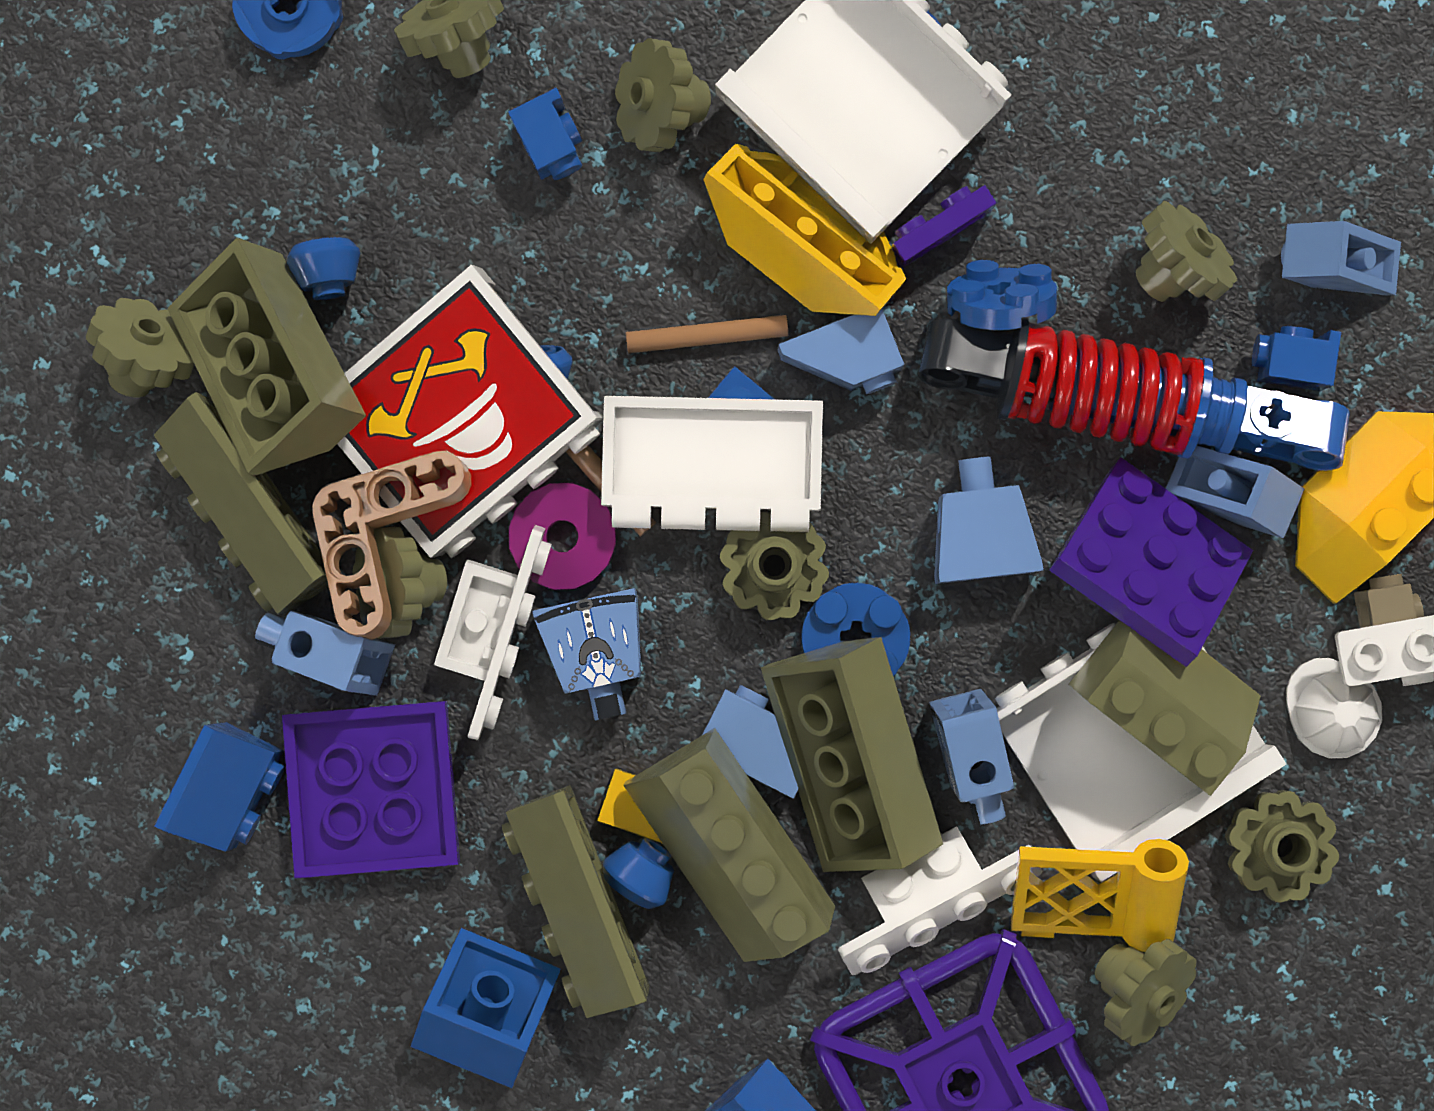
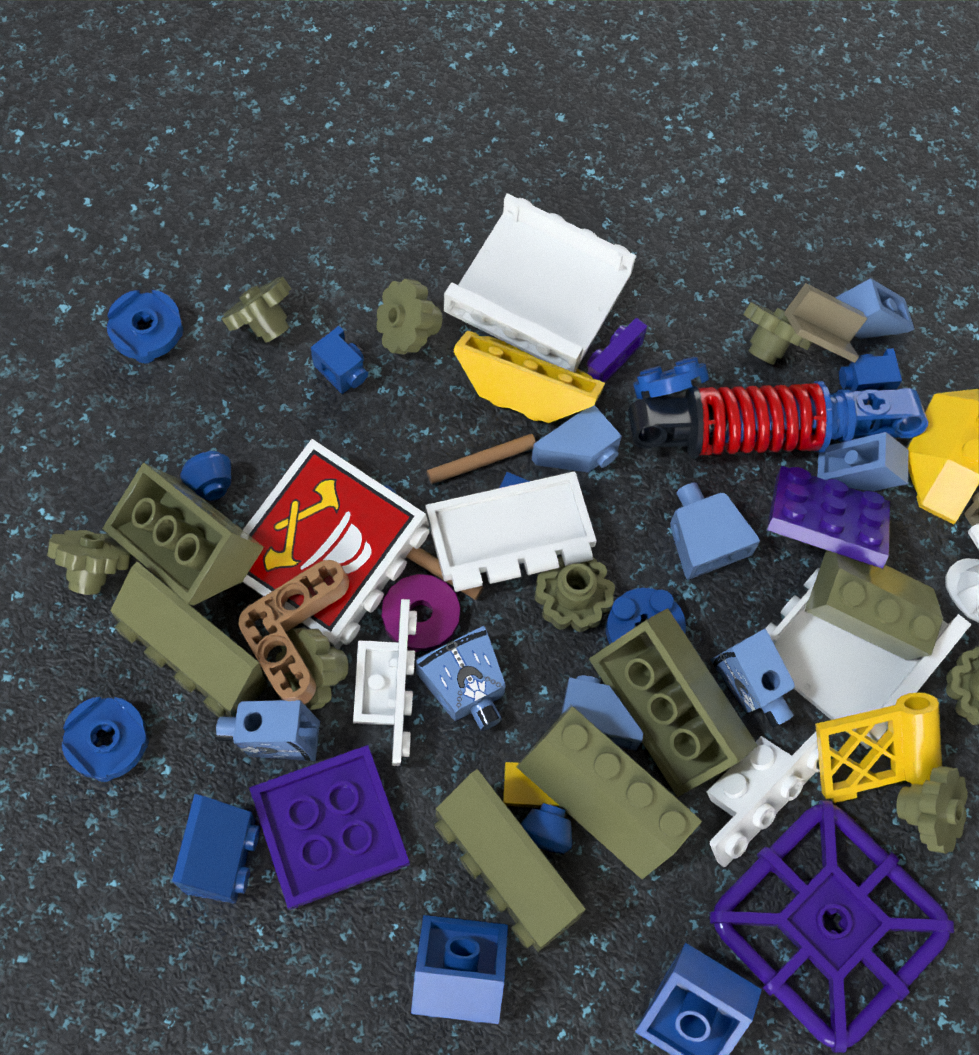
camera: 25 degrees left, 20 degrees down
(87, 585) = (104, 761): none -> blue plate
(1249, 275) = (825, 321): none -> dark tan panel

